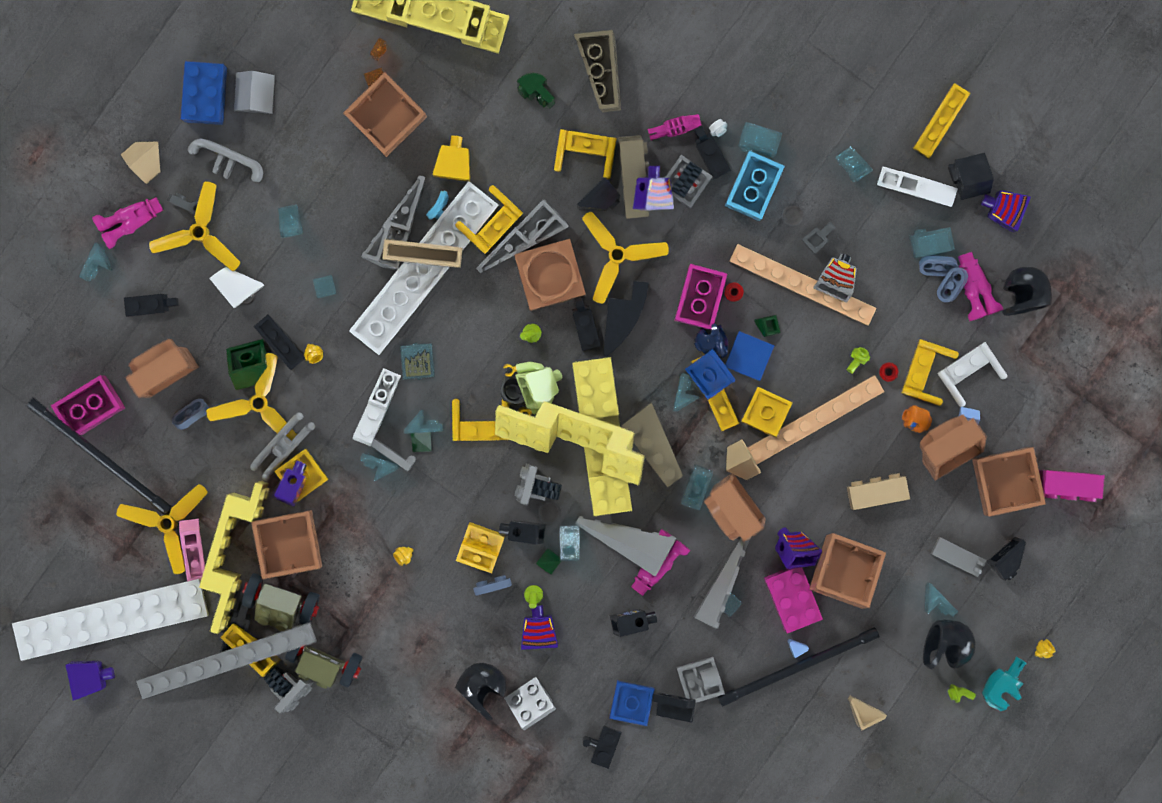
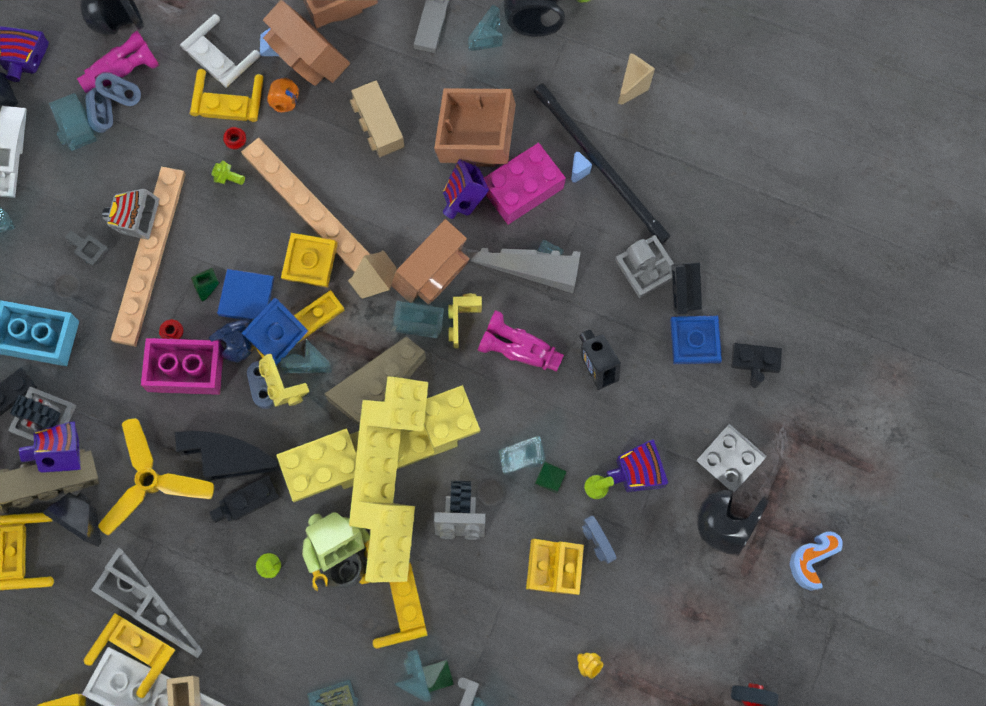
camera: 105 degrees left, 15 degrees down
(443, 741) = (806, 555): none -> light blue animal
(530, 532) = (521, 504): black torso -> none
(550, 274) = (187, 559): nougat container -> none
(640, 547) = (505, 366): light grey wedge -> none
(664, 366) = (276, 390): none -> light yellow bracket
(674, 354) = (257, 386): none -> sand blue plate
(702, 529) = (467, 304): none -> light yellow bracket

